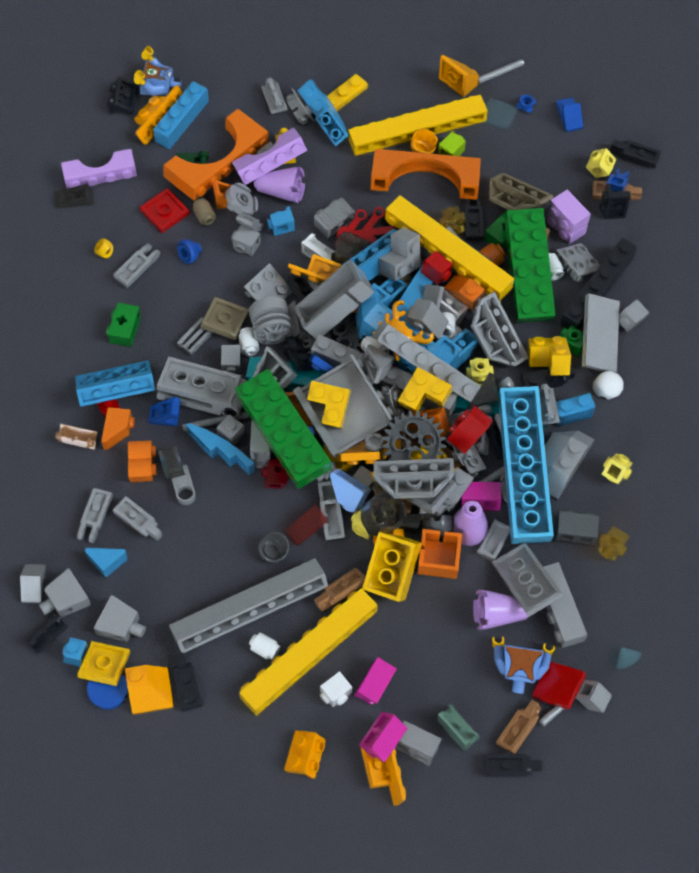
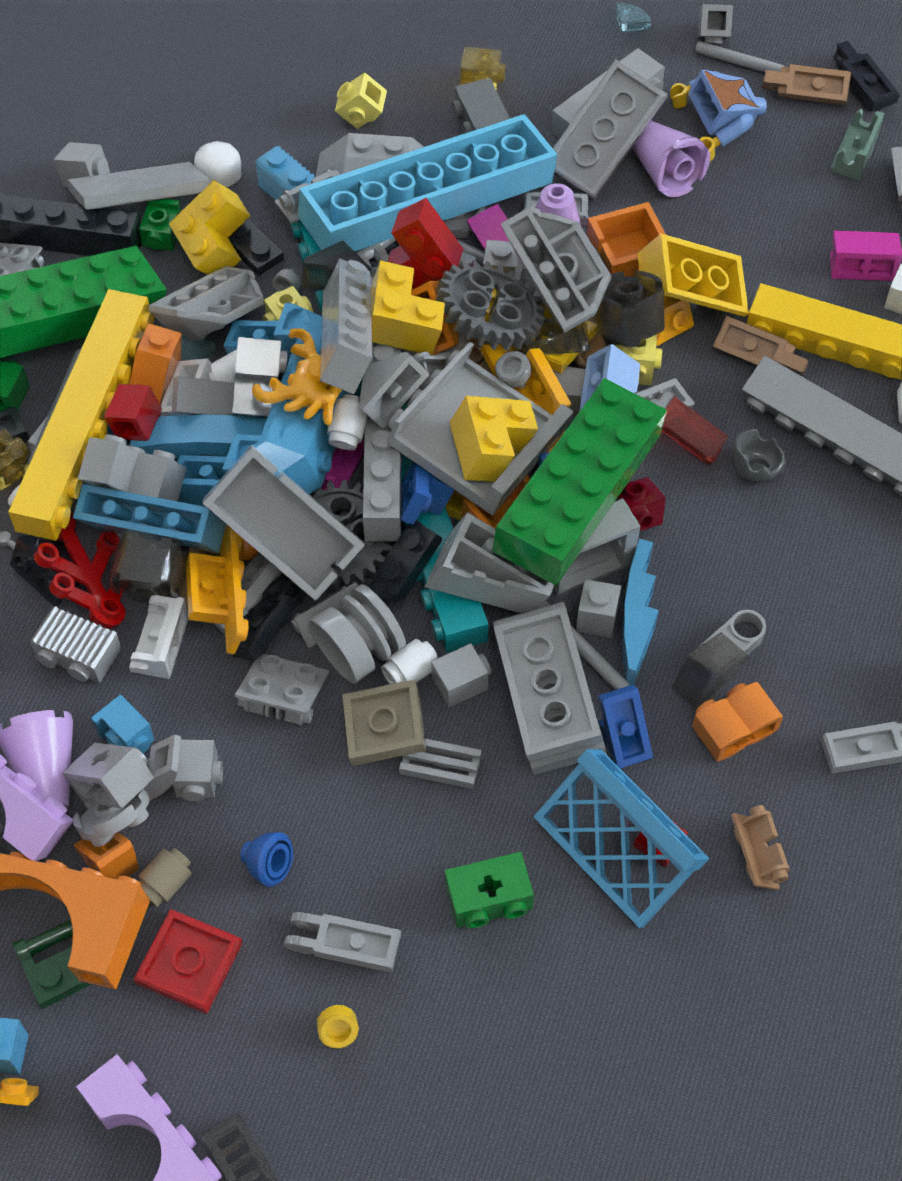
camera: 115 degrees left, 5 degrees down
(117, 426) = (699, 793): orange slope -> none
(137, 518) = (838, 677): light grey hinge -> none
(255, 200) = (109, 774): none -> light grey brick
(494, 253) = (45, 379): orange head -> none
(559, 685) = (726, 52): red tile -> none

